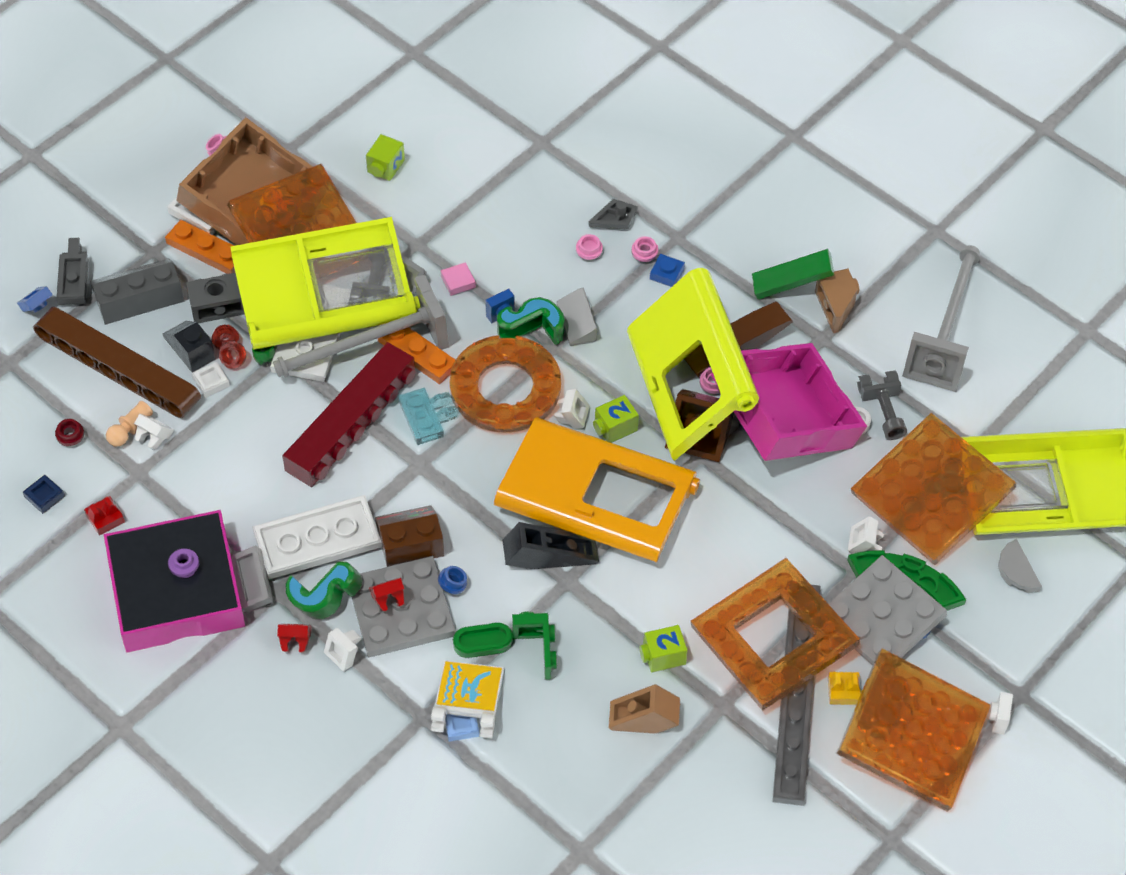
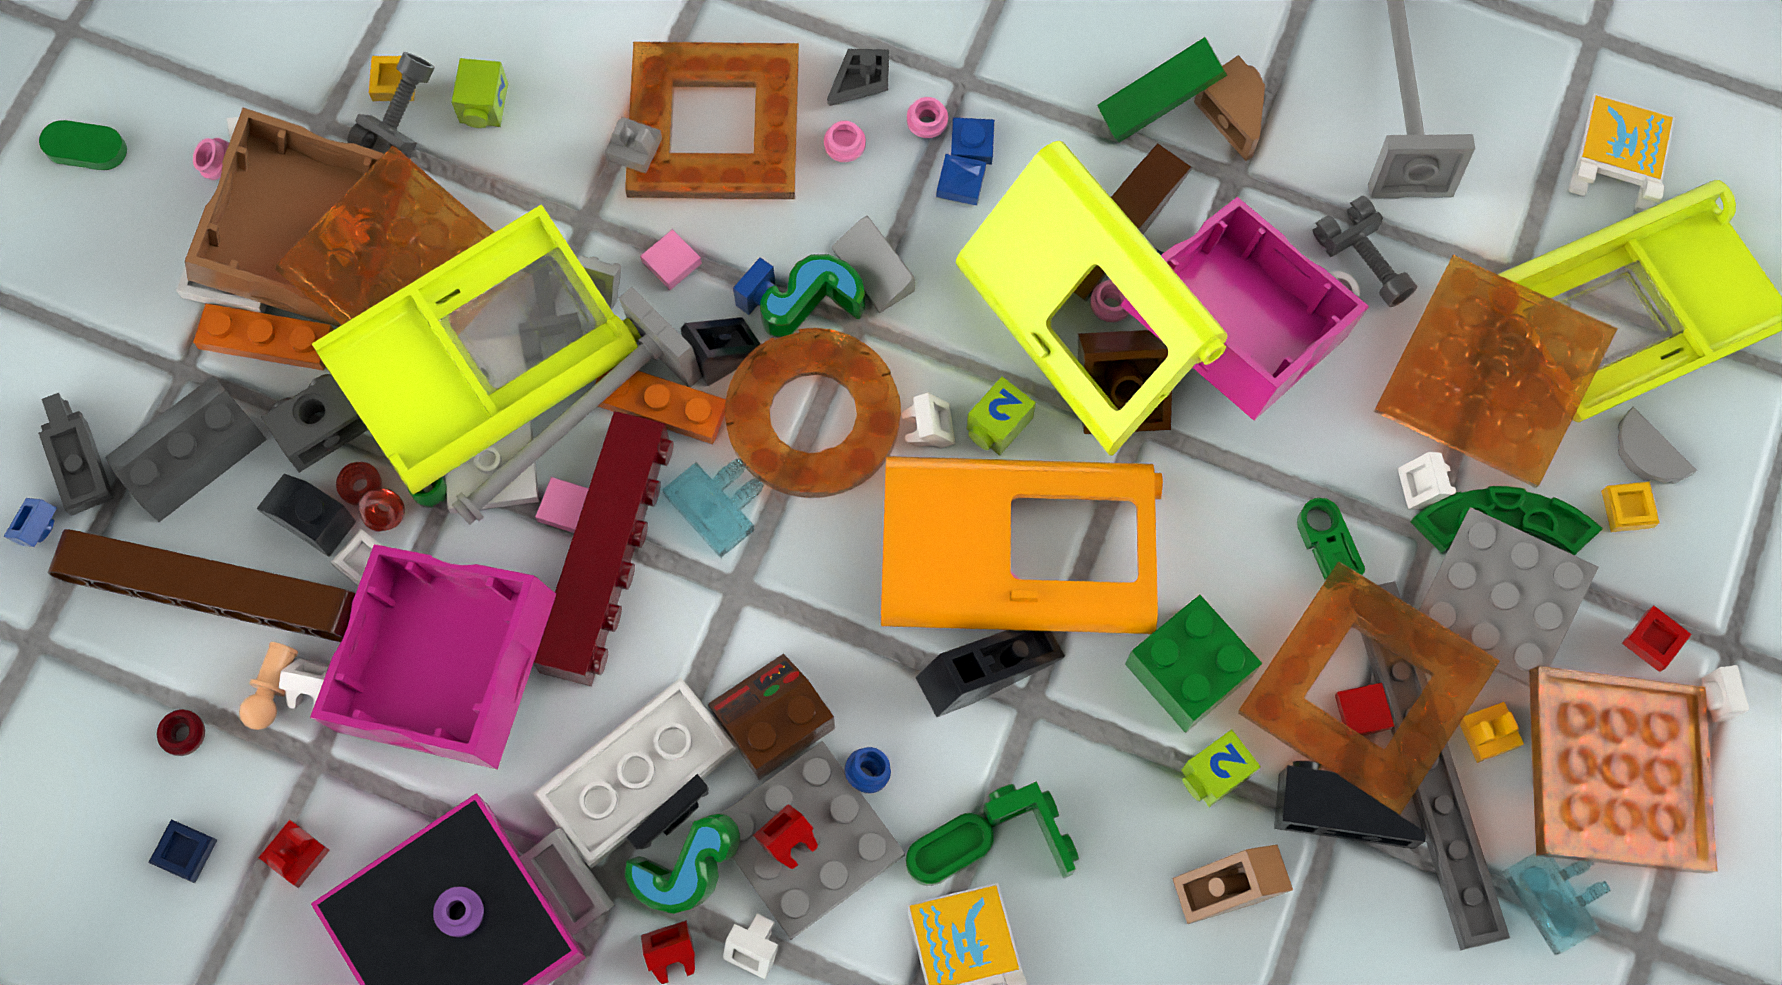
camera: 20 degrees left, 15 degrees up
(148, 119) = (83, 145): none -> green tile
(229, 433) = (435, 656): none -> dark pink tile
(324, 562) = (670, 814): none -> black tile
(334, 384) = (561, 504): none -> bright pink tile
(338, 134) = (384, 78): none -> yellow tile
(350, 131) = (366, 130): none -> dark grey bar
(461, 208) = (633, 144): none -> light grey tile
(463, 329) = (719, 345): none -> black slope
(536, 250) = (756, 175): none -> clear orange plate
(650, 288) = (961, 179): none -> blue tile
(672, 586) = (1192, 663): none -> green brick
(722, 691) = (1333, 807): none -> black slope
(770, 648) = (1365, 709): none -> red tile
(793, 551) = (1331, 544): none -> green piece
(840, 791) = (1553, 901): none -> clear light blue hinge
(970, 666) = (1656, 638): none -> red tile
(991, 595) = (1630, 506): none -> yellow tile
(1077, 394) = (1624, 145): none -> flag

